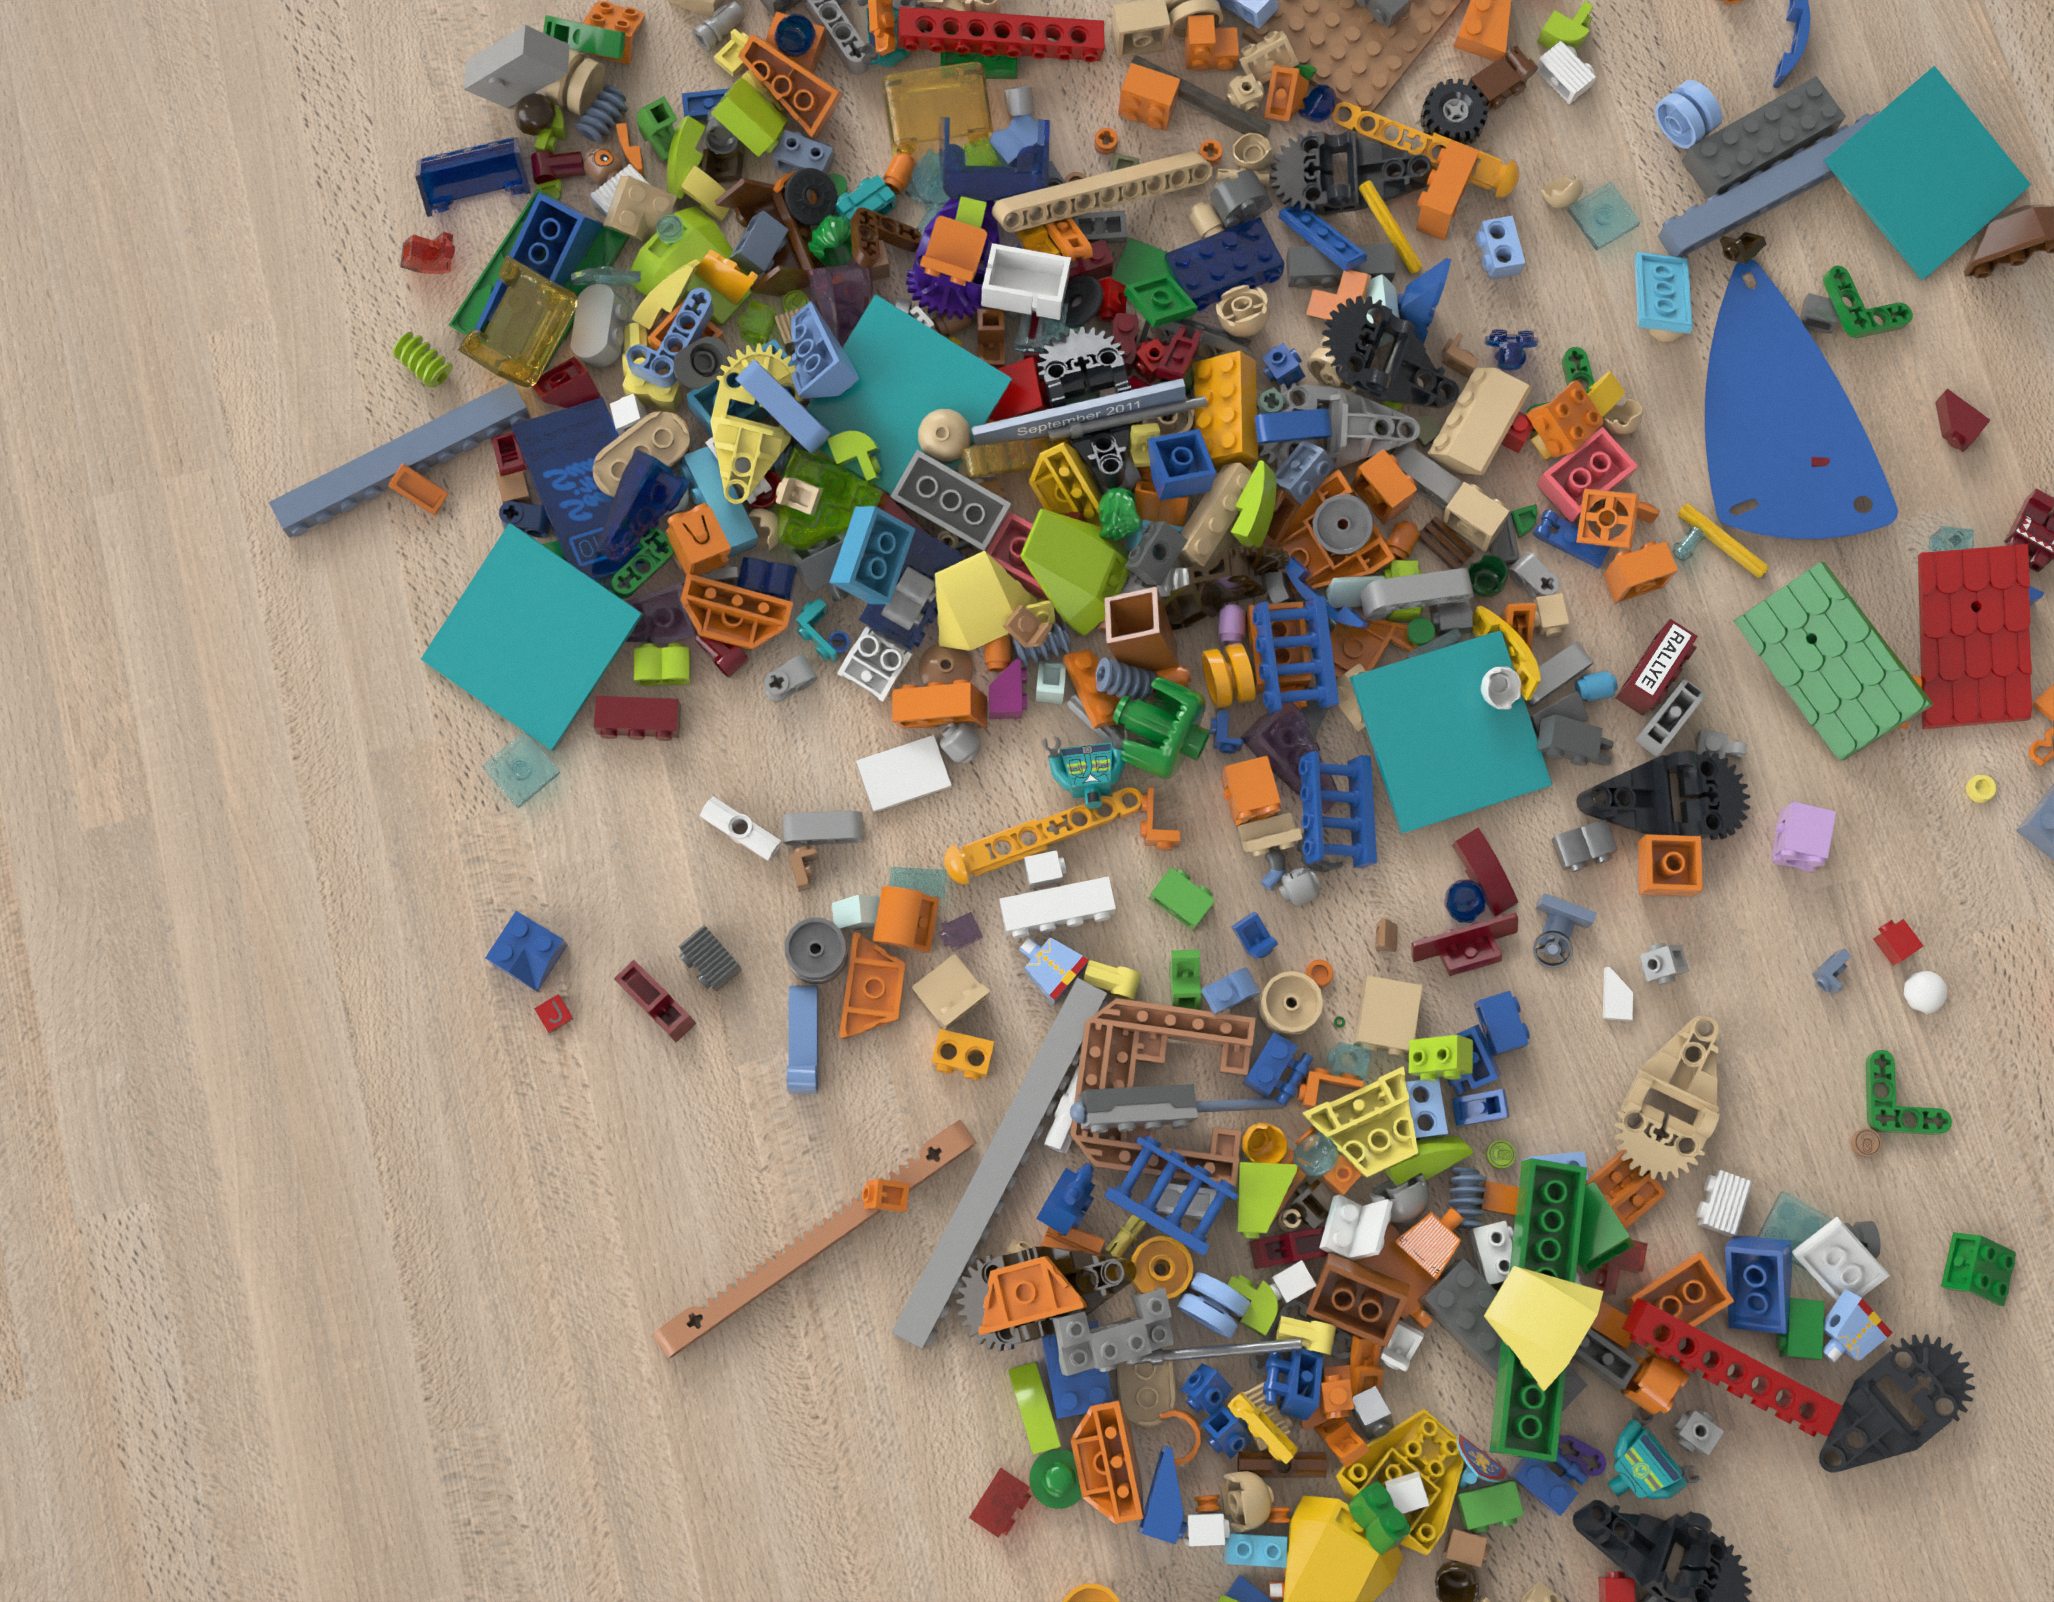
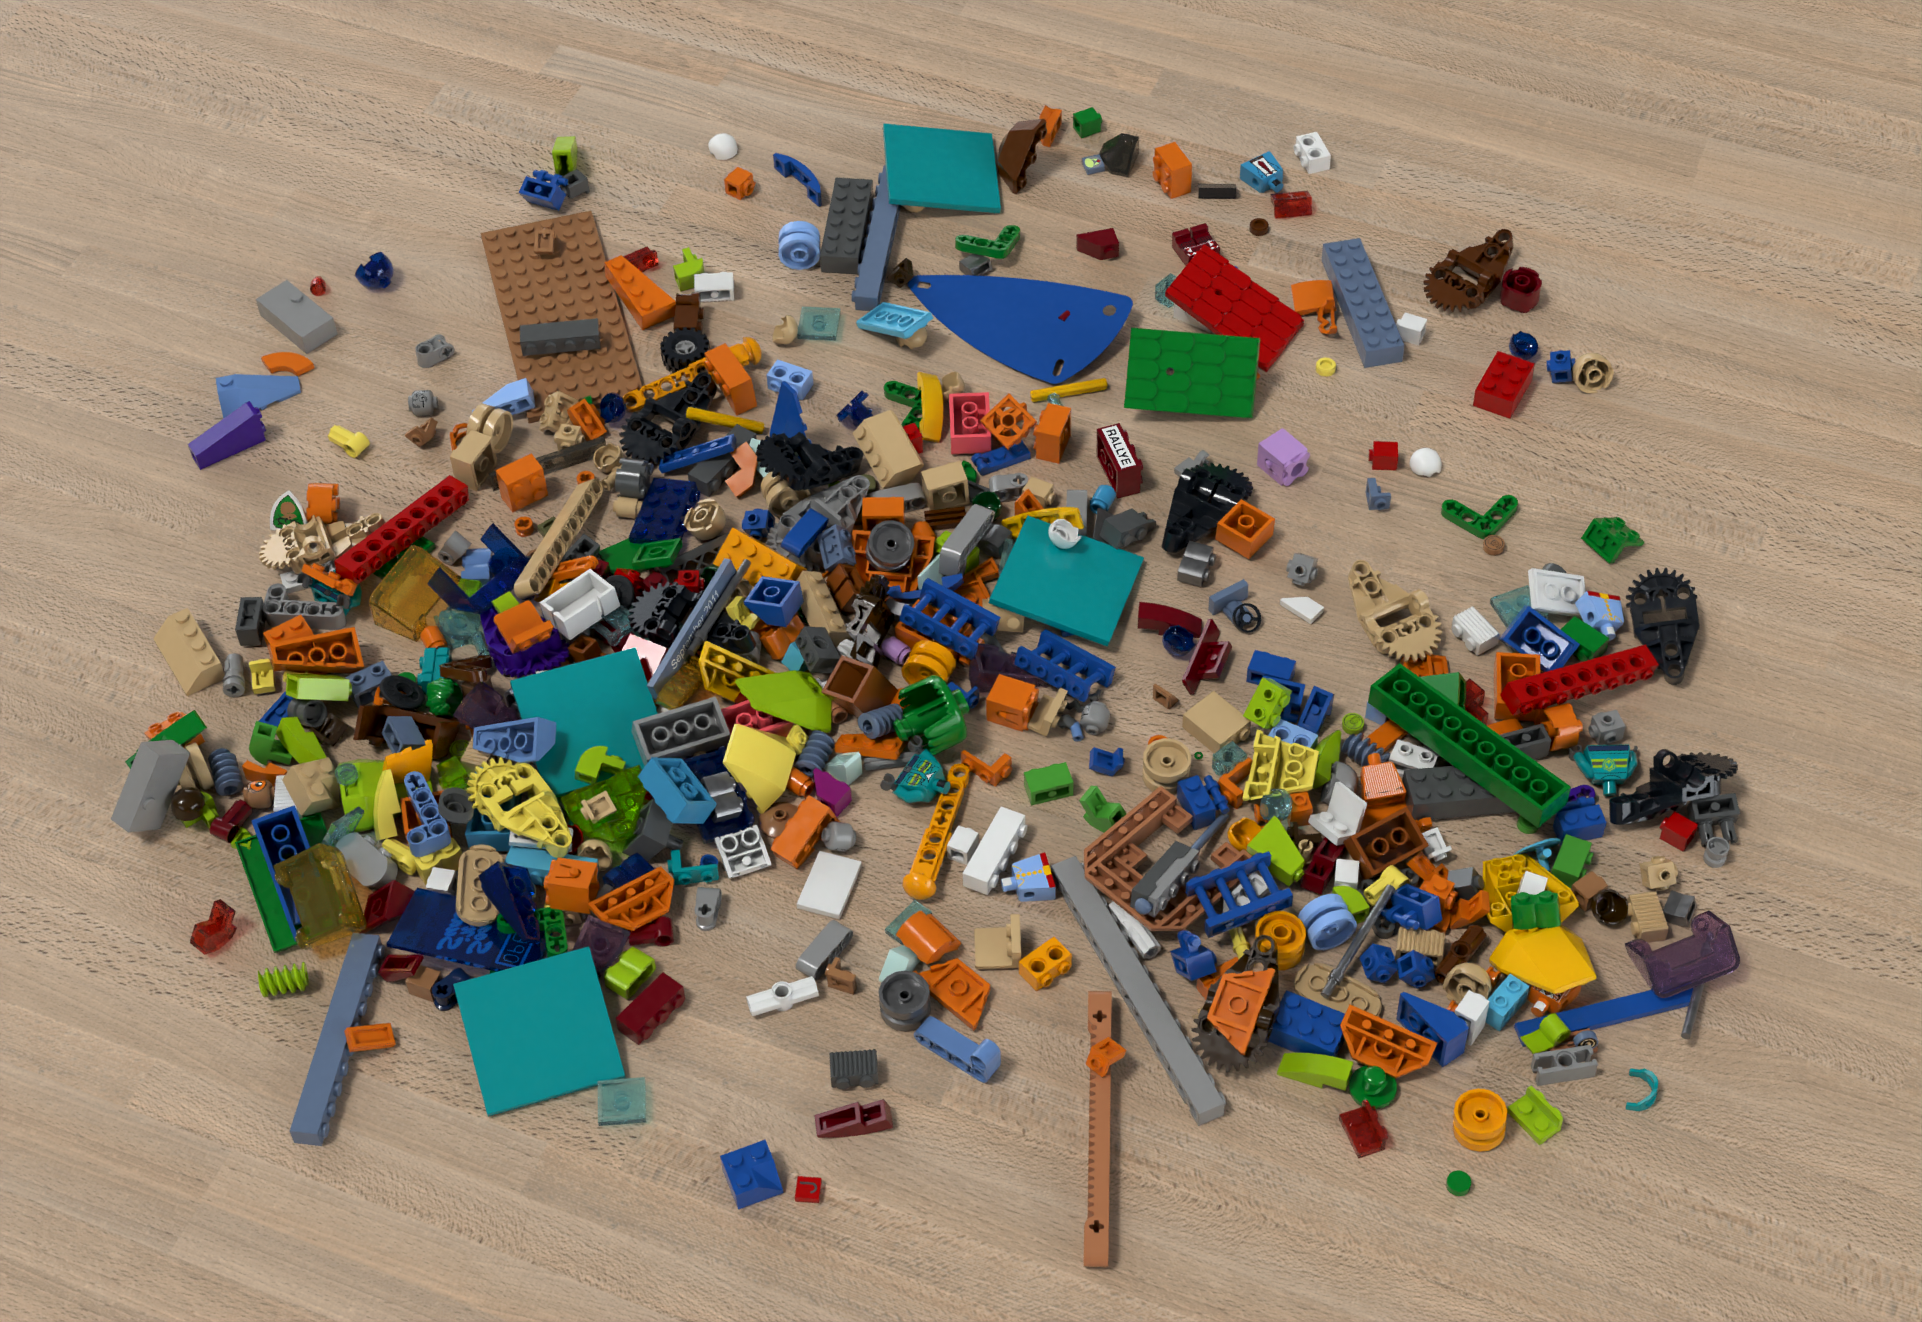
camera: 45 degrees left, 25 degrees down
(471, 173) = (189, 864): clear blue windscreen -> none
(705, 191) = (339, 746): light yellow slope -> none
(784, 407) = (534, 774): medium blue beam -> none
(794, 35) = (292, 624): clear blue hair -> none
(944, 435) = (633, 705): tan cylinder -> none
(960, 932) = (962, 918): clear purple bracket -> none
(1027, 628) = (802, 746): medium nougat bracket -> none
(1115, 1342) = (1307, 990): light grey bracket -> none
(1118, 514) = (775, 651): green hair -> none
(1118, 981) = (1072, 846): light yellow piece -> none
(1179, 355) = (703, 561): dark red hinge -> none
(1196, 1427) = (1394, 986): orange helmet -> none
(1209, 46) = (519, 436): orange brick -> none
(1231, 991) = (1132, 787): medium blue brick -> none
(1256, 507) = (836, 581): lime slope -> none
(1263, 1427) = (1427, 939): yellow hinge -> none
(1277, 398) = (777, 534): sand green bush -> none
(1420, 631) = (990, 558): green tile -> none
(1457, 359) = (842, 438): medium nougat bracket -> none
(1543, 1320) = (1478, 737): light yellow wedge -> none
(1566, 420) = (929, 408): orange bracket -> none
(1670, 717) = (1155, 473): light grey brick -> none

